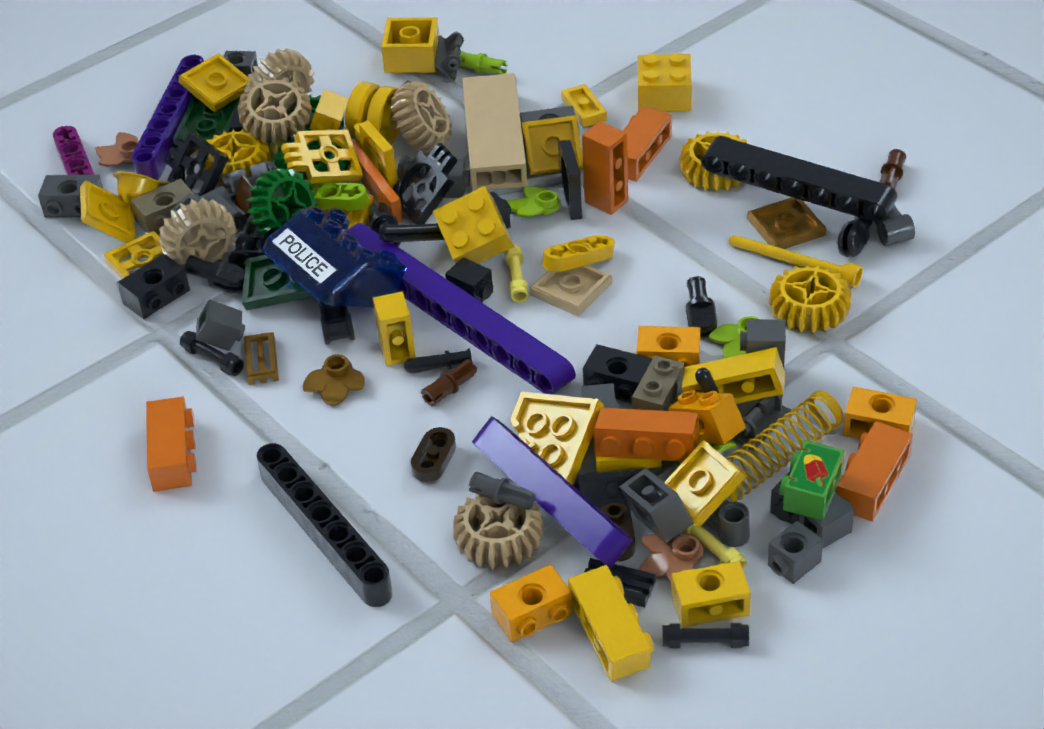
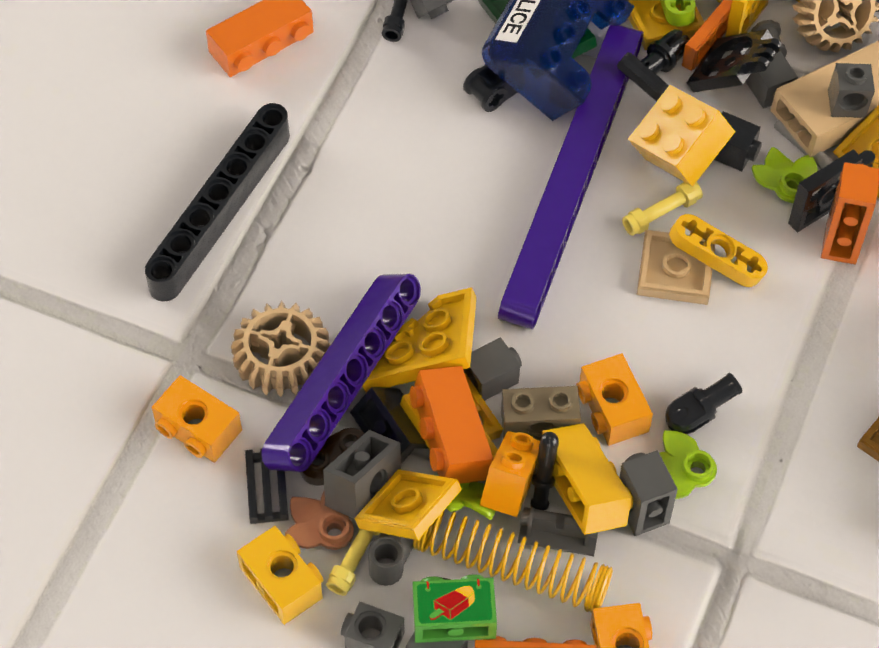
camera: 60 degrees right, 15 degrees up
(262, 373) = (421, 50): pearl gold tile -> none
(334, 380) = (414, 121): pearl gold plate -> none
(394, 328) = (495, 134): yellow brick -> none
(424, 363) = (496, 202): black piece -> none
(430, 460) = (355, 250): dark brown plate -> none
(448, 382) = (463, 219): reddish brown axle -> none
(472, 278) = (616, 171): black brick -> none
(501, 491) = (305, 327): dark grey axle -> none
(507, 127) = (851, 90): none -> dark grey brick
(610, 623) = (197, 496): yellow brick -> none
(616, 367) = (549, 347): black brick -> none
(736, 635) = (241, 618): black bar -> none
(810, 298) = (769, 526): yellow gear -> none
(850, 272) = (852, 538): yellow piece -> none

